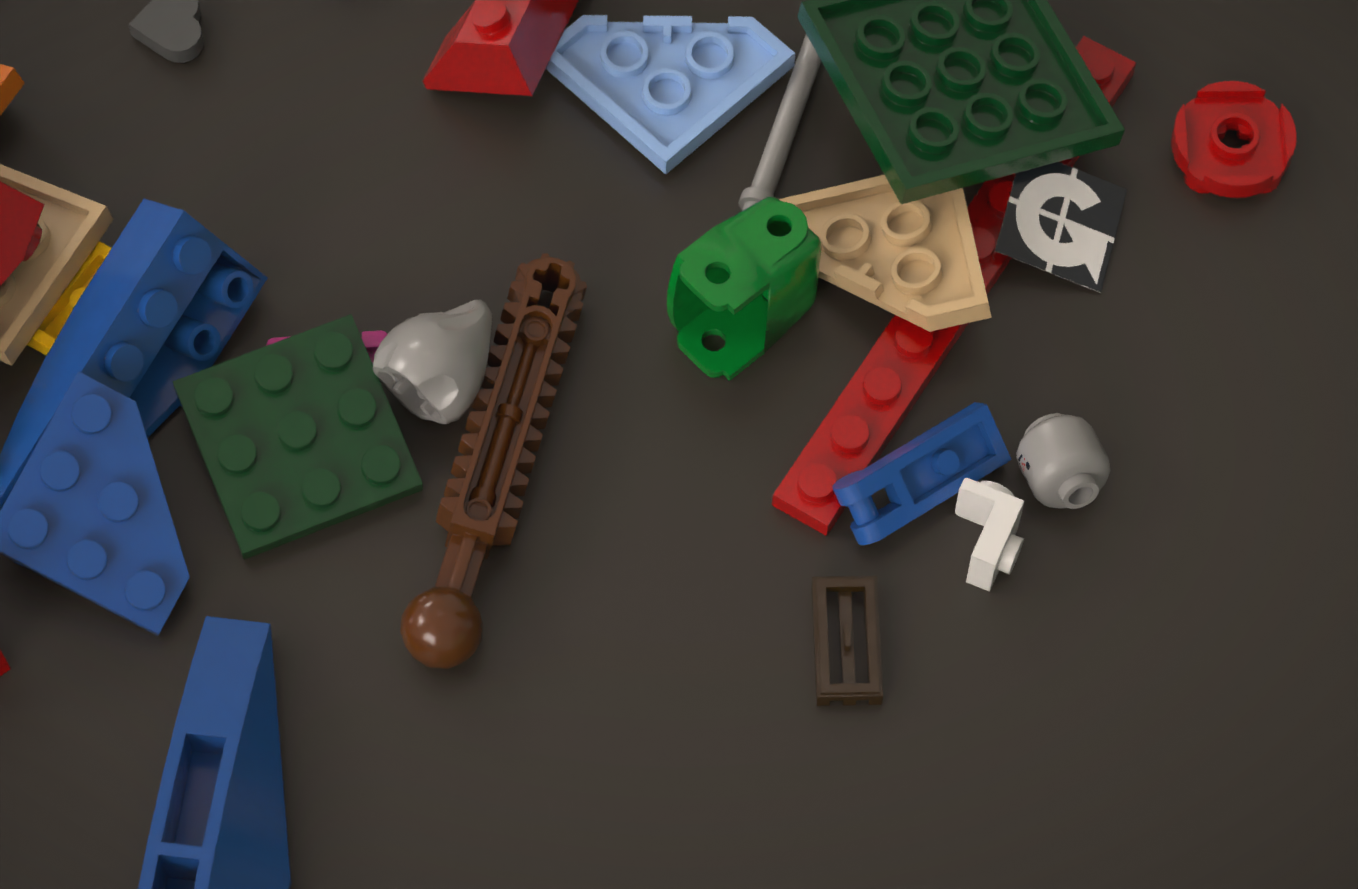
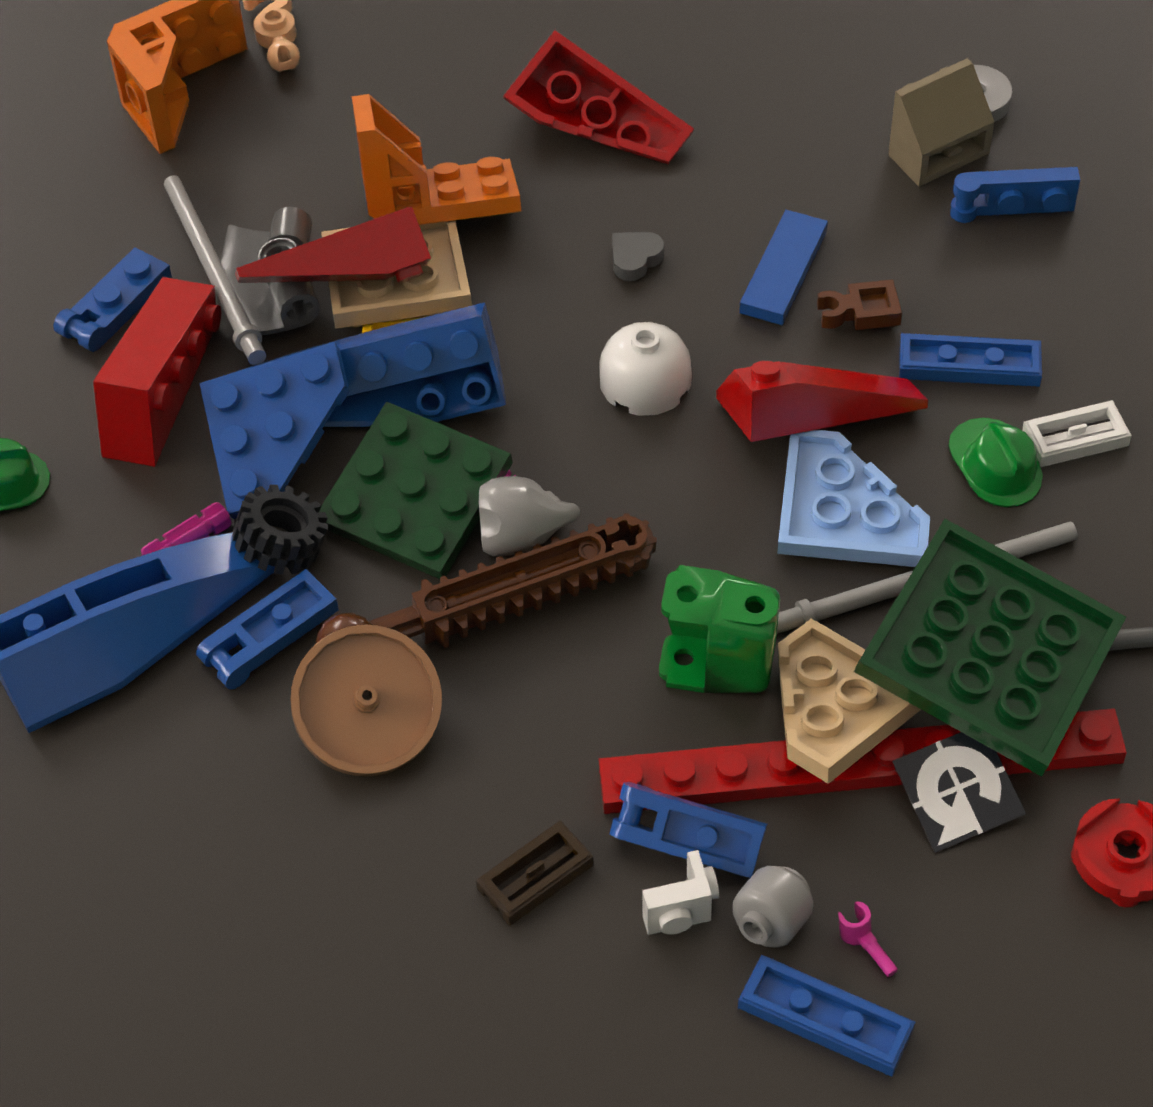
camera: 55 degrees right, 10 degrees down
(148, 695) = (214, 520): none -> dark pink axle
(246, 618) = (274, 547): none -> black tyre
(337, 123) = (645, 368): none -> white cylinder
(346, 689) = (267, 628): none -> blue plate
(534, 654) = (366, 700): none -> medium nougat piece
(1144, 412) = (862, 935): none -> dark pink hand
(1196, 502) = (826, 1015): none -> blue tile

